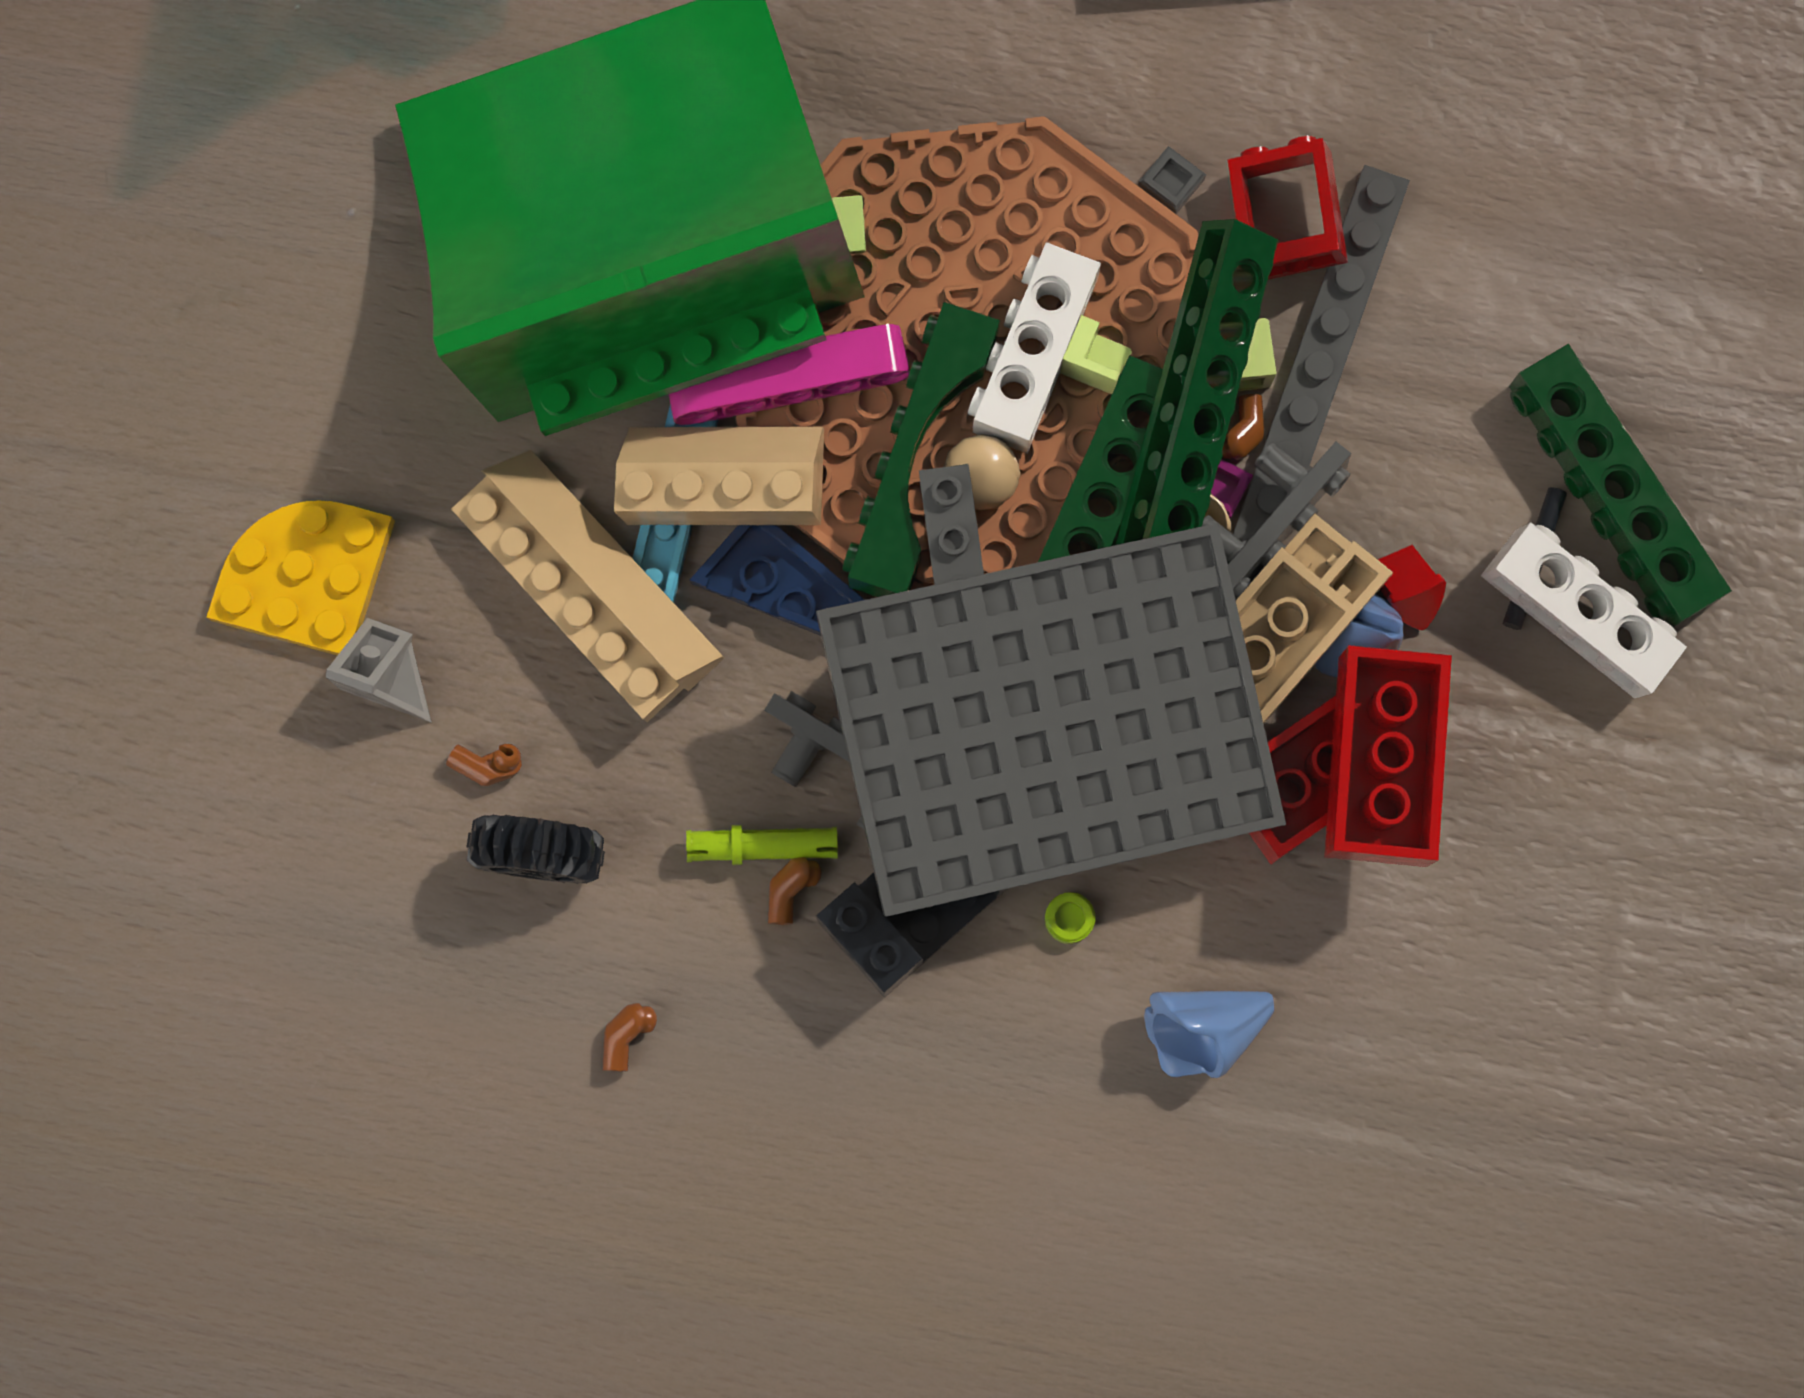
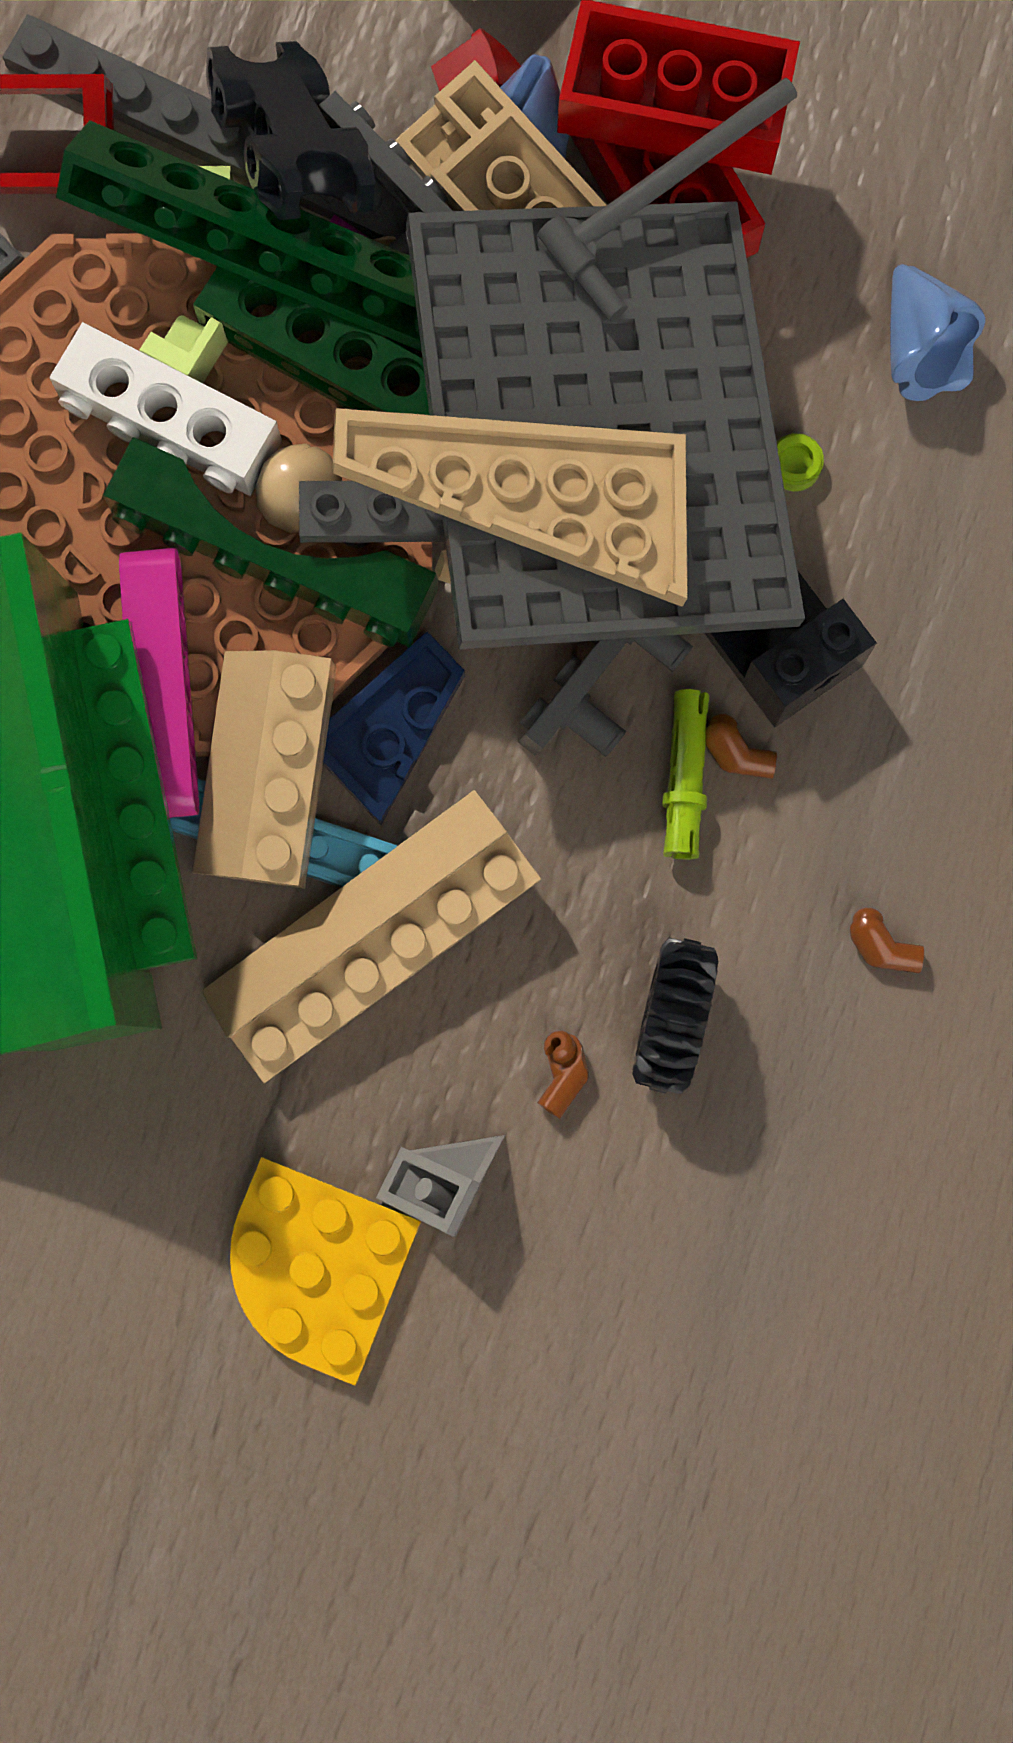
camera: 85 degrees left, 0 degrees up
(964, 686) = (565, 491): none -> tan wing
(1210, 673) = (575, 244): none -> dark grey bar
(1281, 426) = (290, 141): none -> black piece

